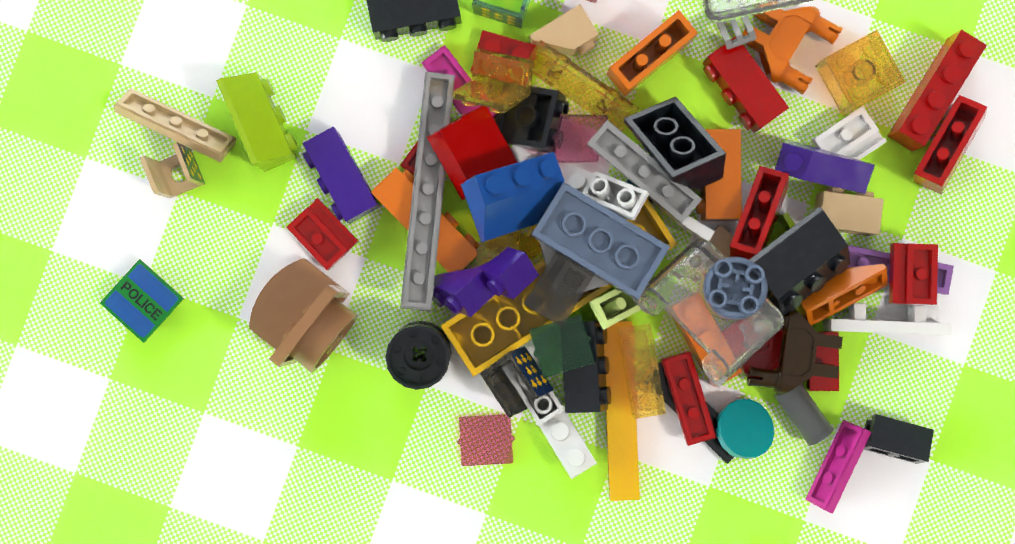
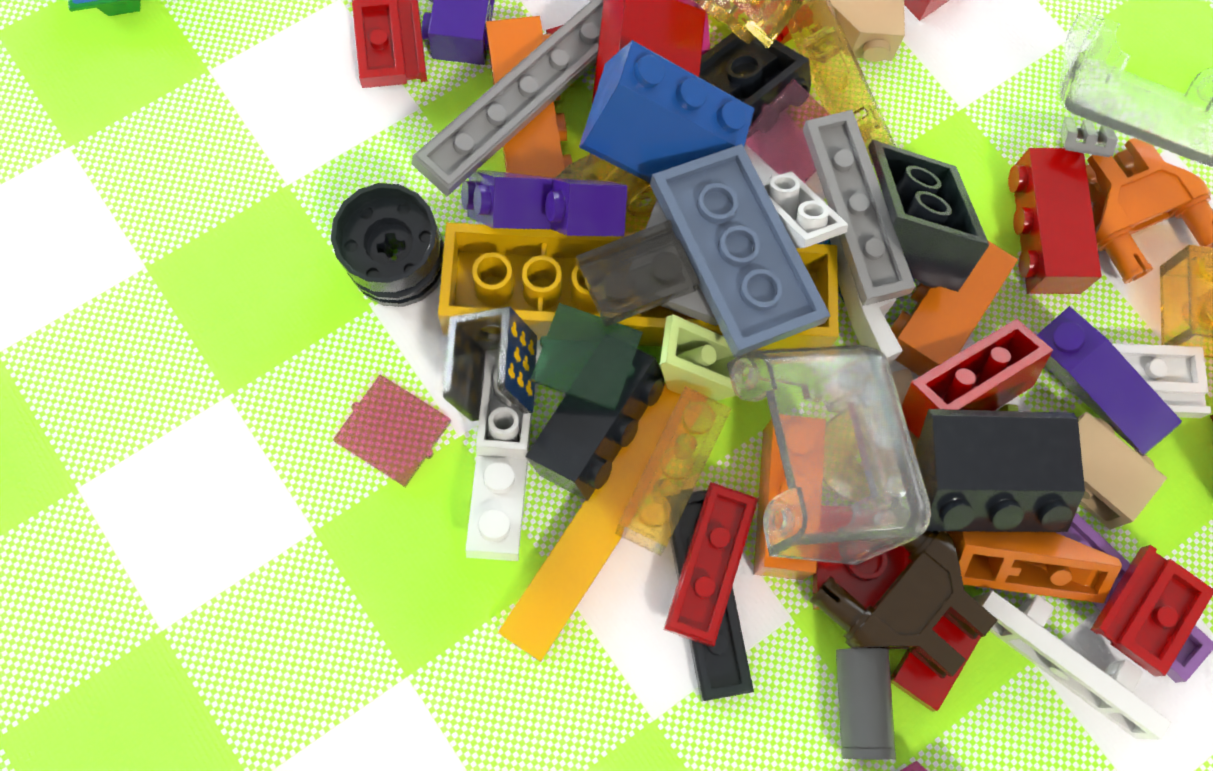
camera: 25 degrees right, 15 degrees down
(302, 315) = (282, 110): medium nougat piece -> none
(651, 53) = (957, 102): orange brick -> none
(735, 288) = (887, 426): sand blue tile -> none
(745, 429) = (763, 666): teal tile -> none

